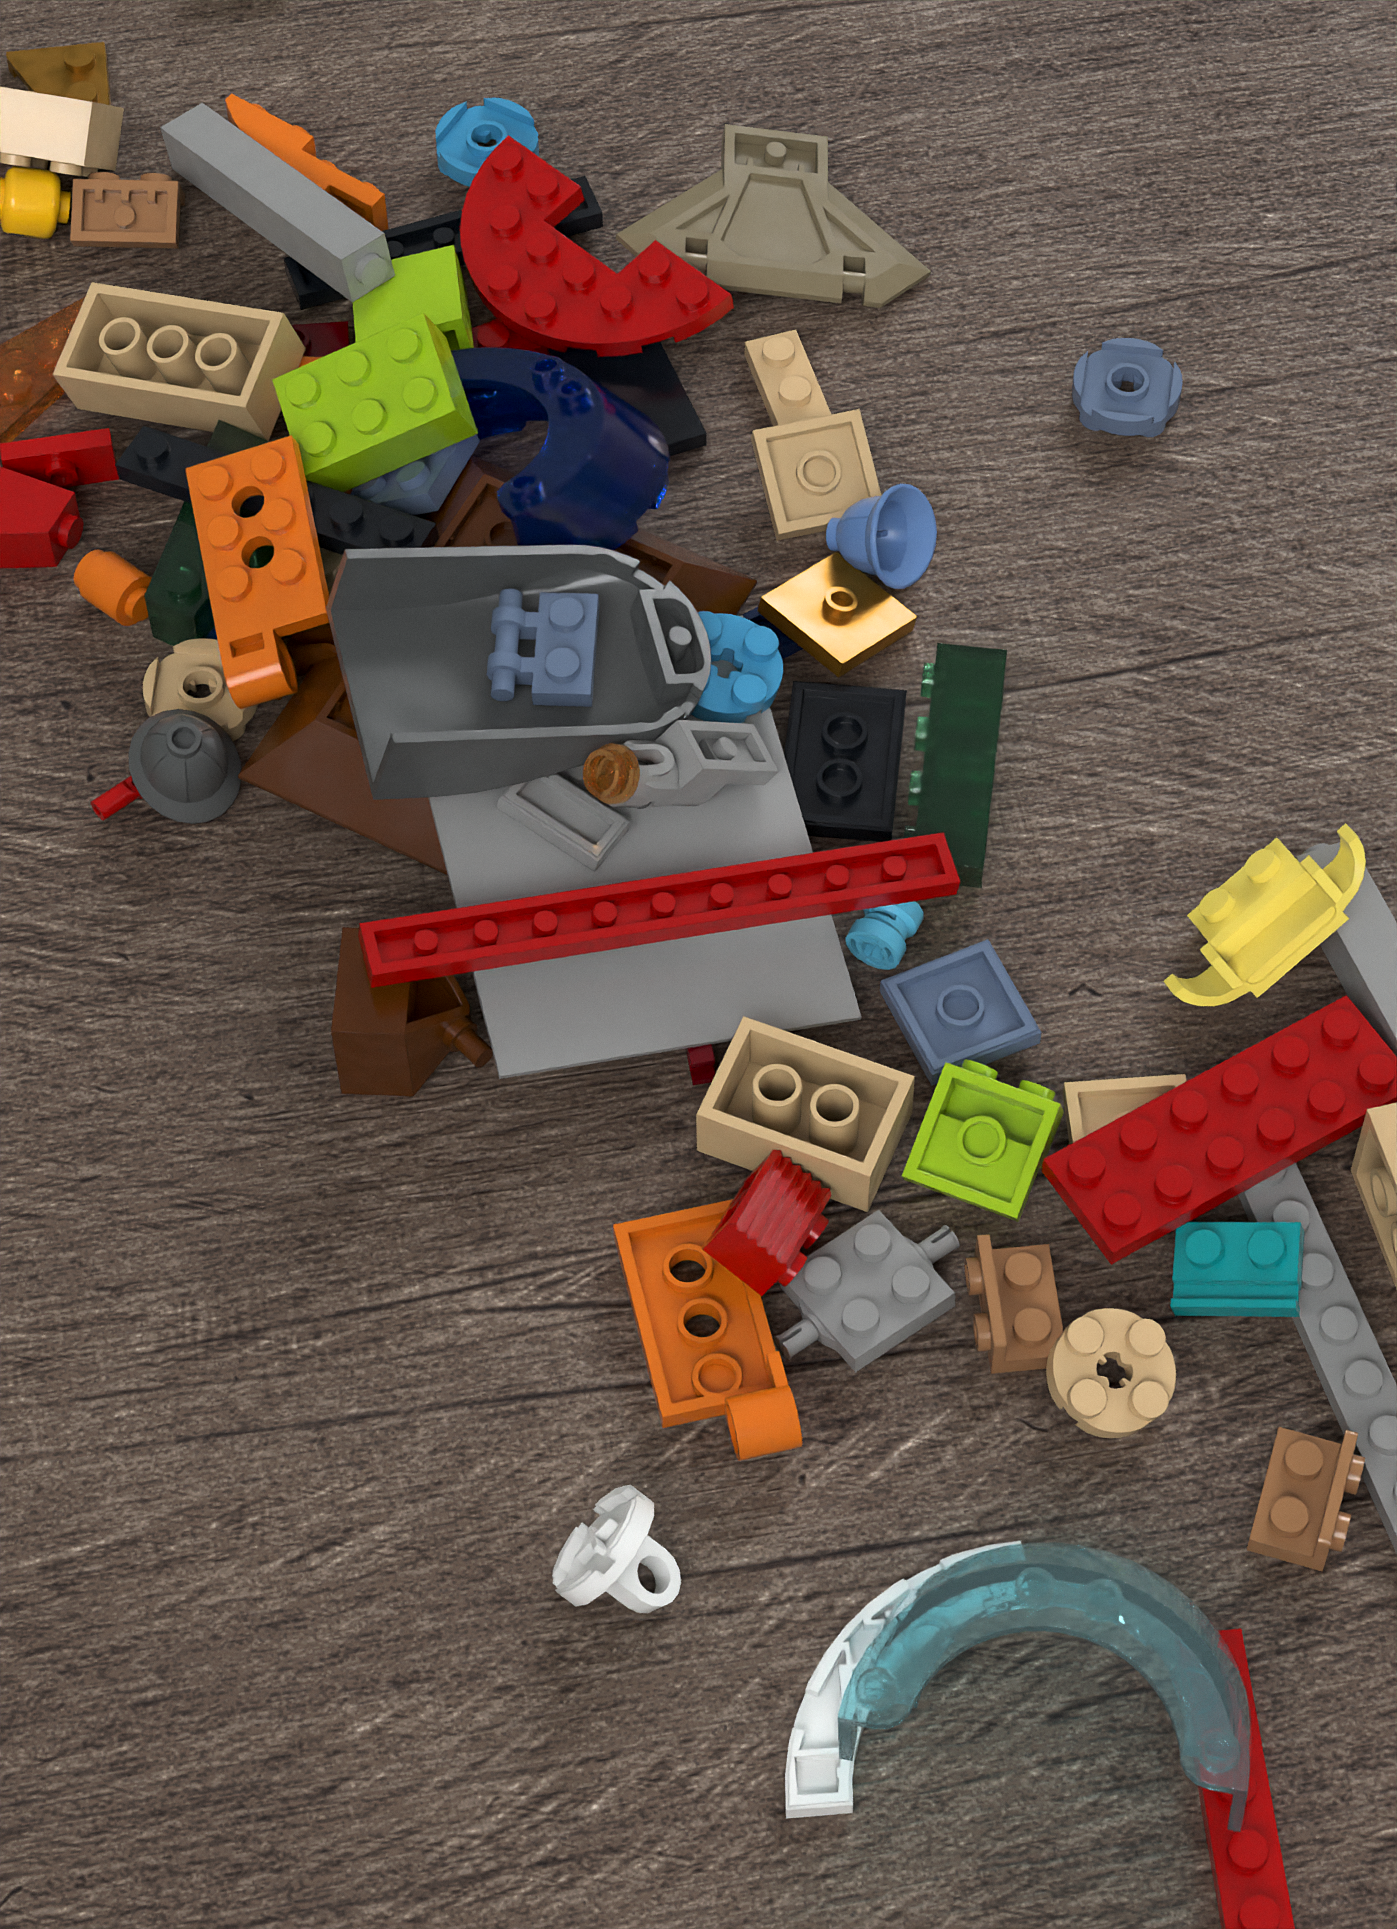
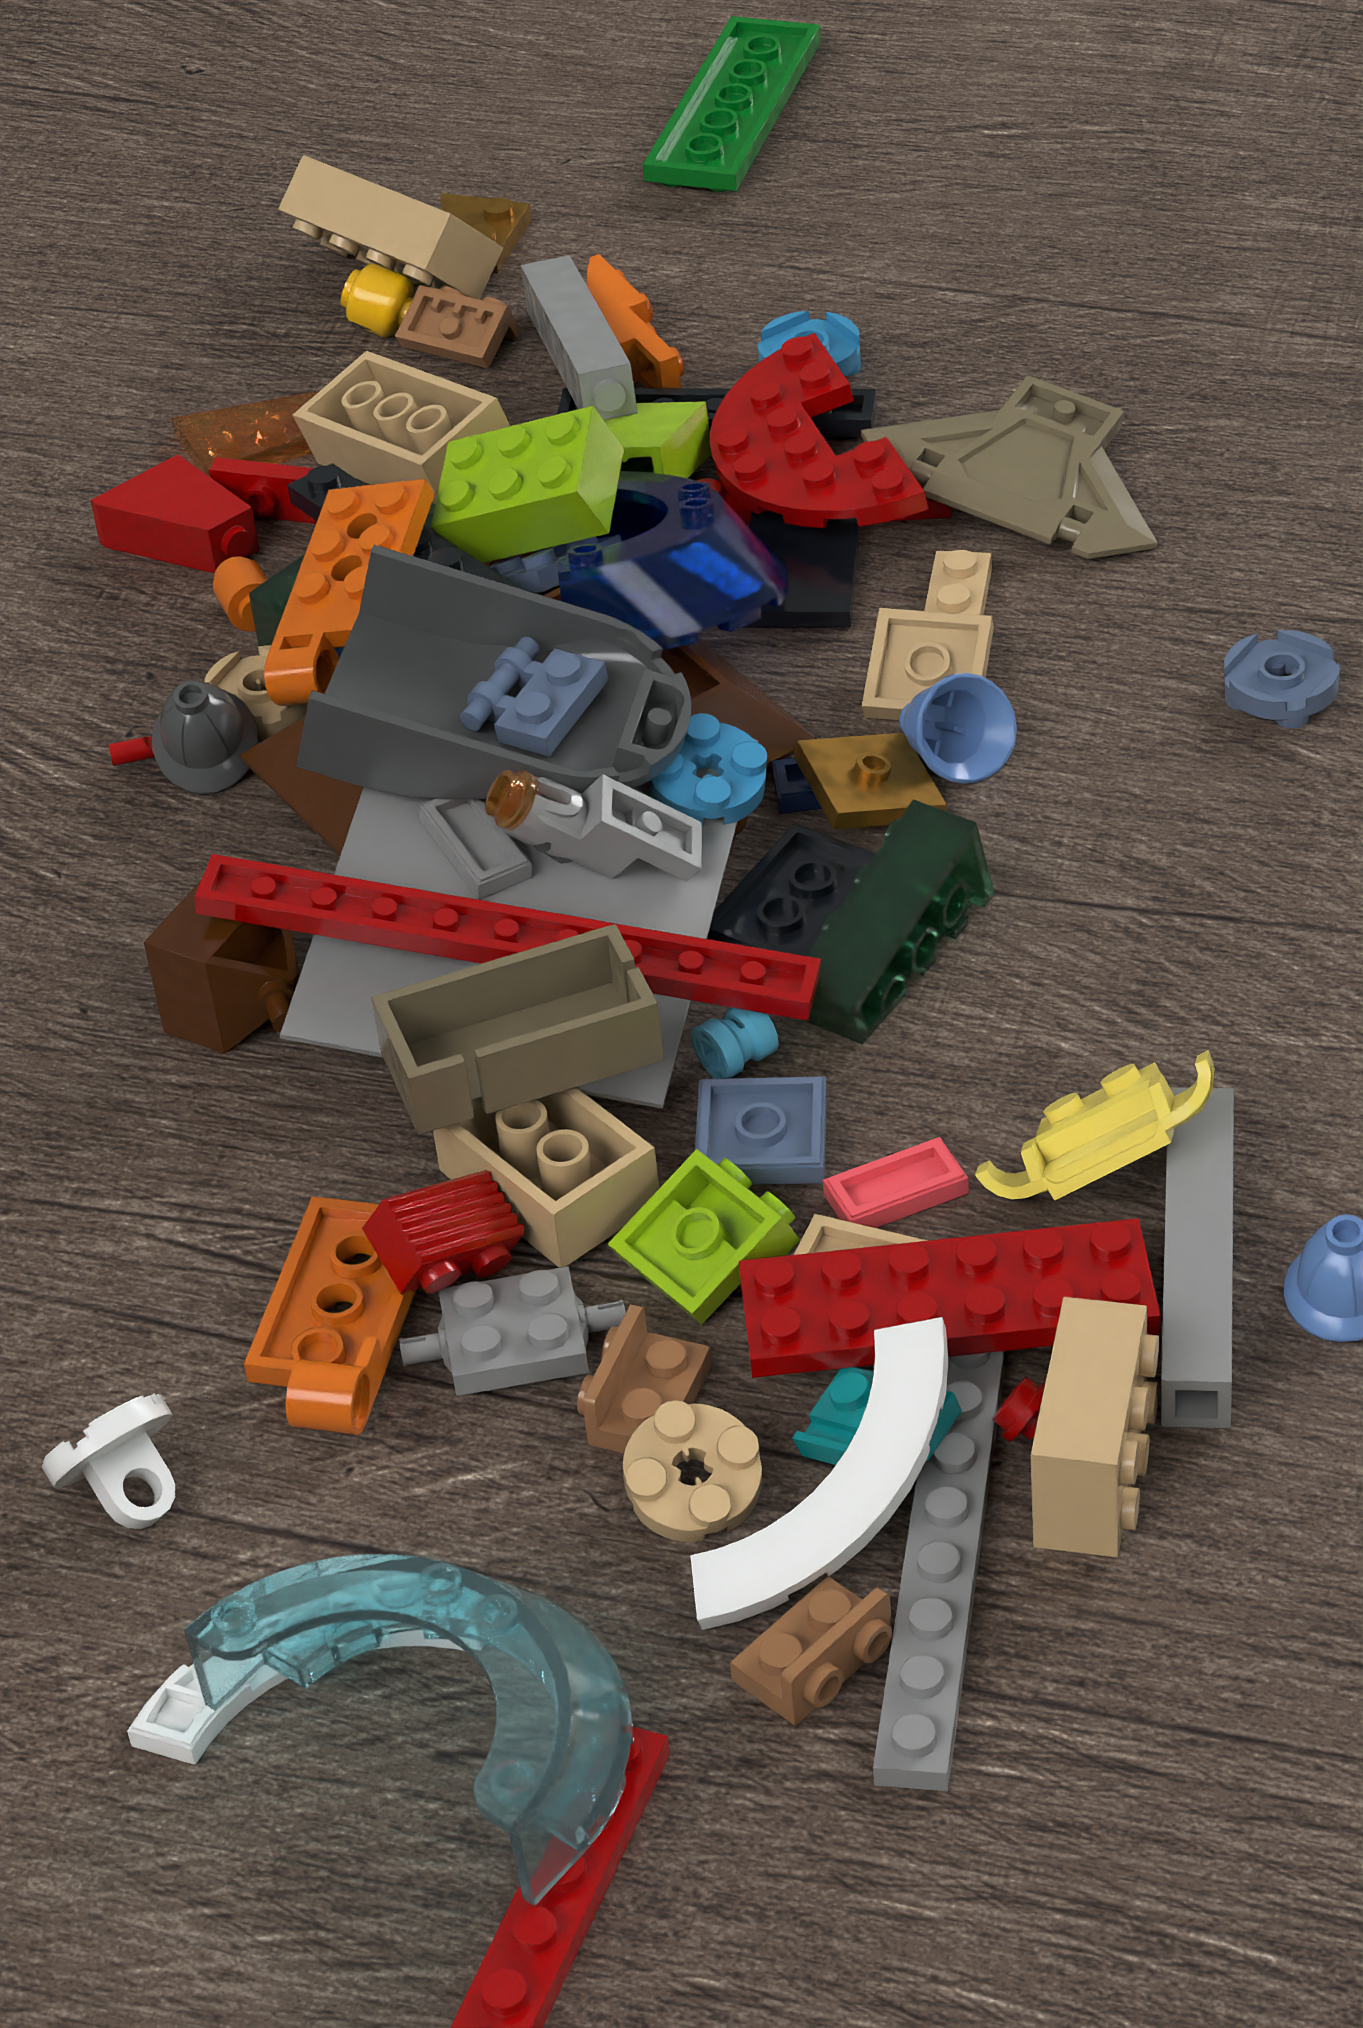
camera: 30 degrees right, 15 degrees down
(746, 1008) = (518, 1028): none -> dark tan piece
(1101, 1024) = (897, 1185): none -> coral tile
(1275, 1348) = (851, 1500): none -> white tile
(1349, 1210) = (1020, 1410): none -> red plate

